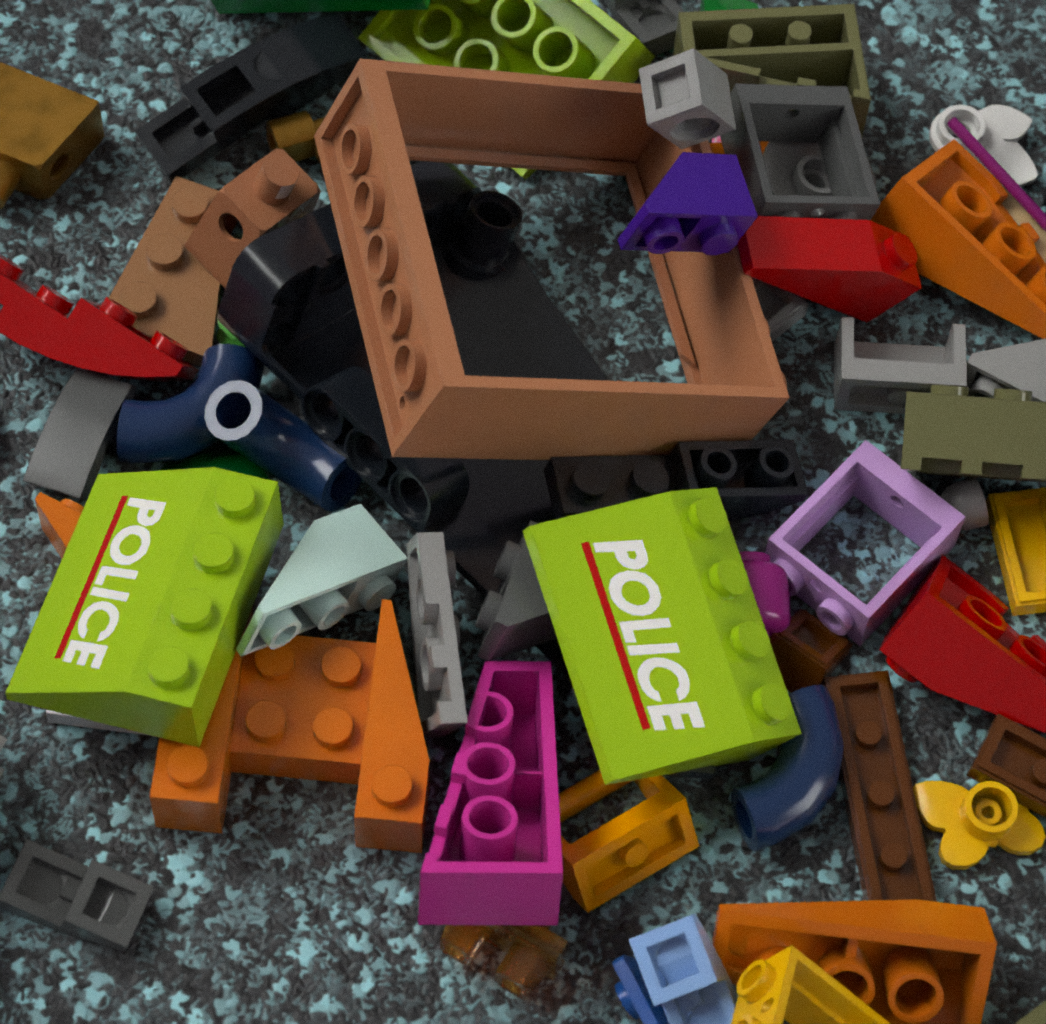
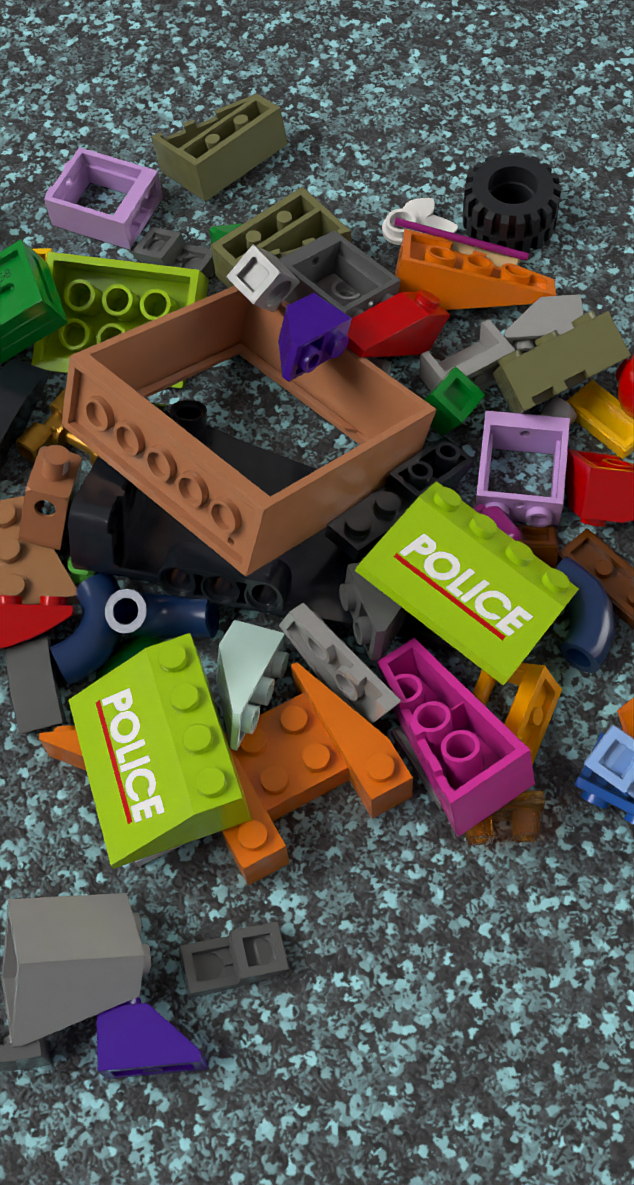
camera: 25 degrees left, 0 degrees up
(833, 400) = (453, 400): none -> green panel

